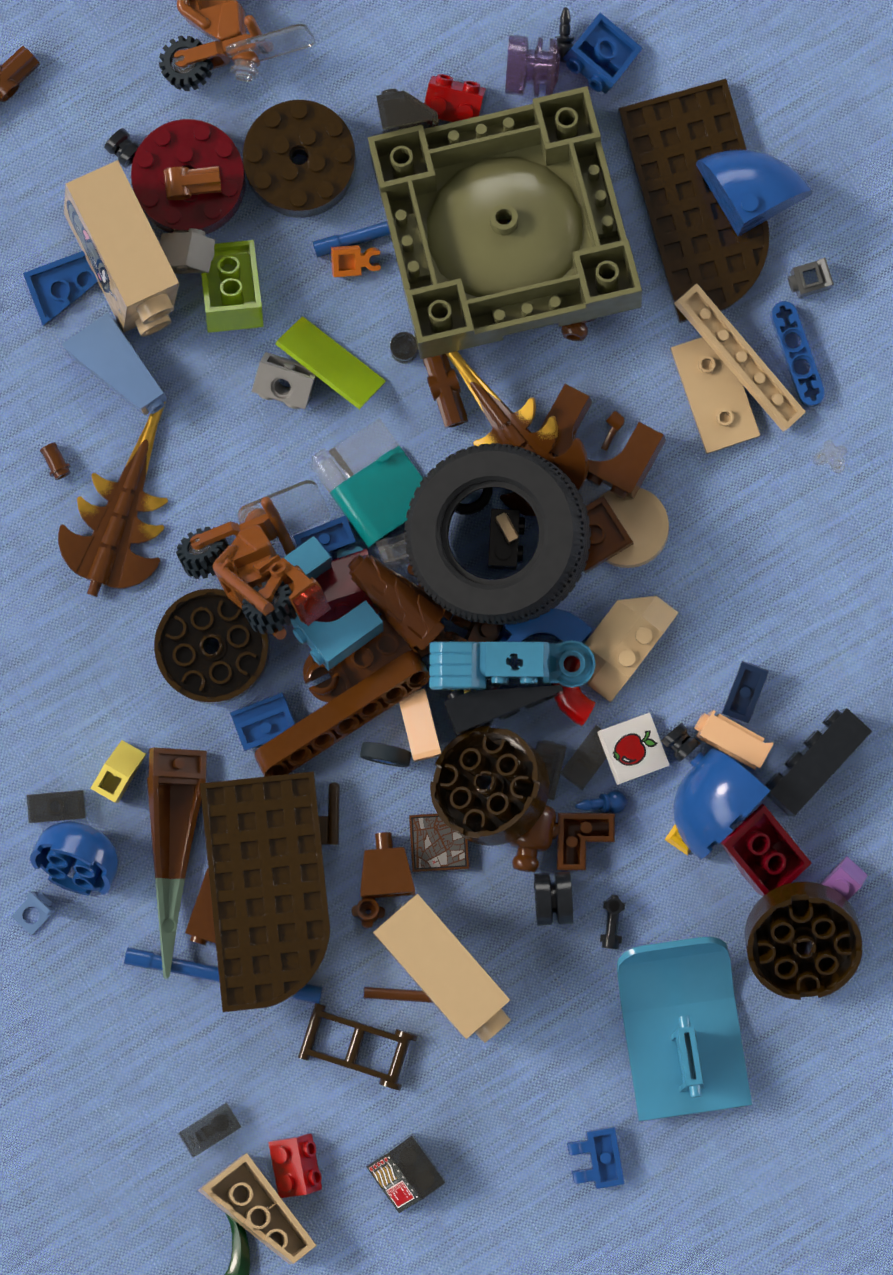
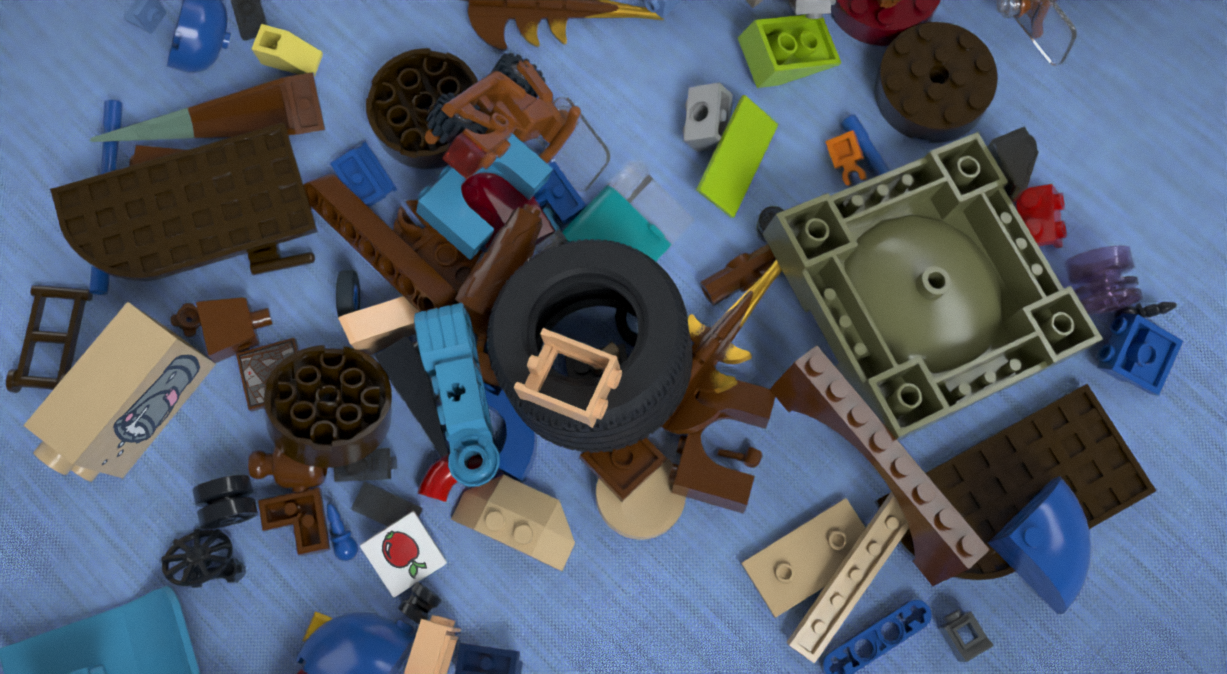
camera: 85 degrees right, 10 degrees down
(520, 576) = (541, 365): none -> light nougat window
(596, 932) = (196, 557): none -> black wheel
(729, 278) = (940, 535): none -> reddish brown arch

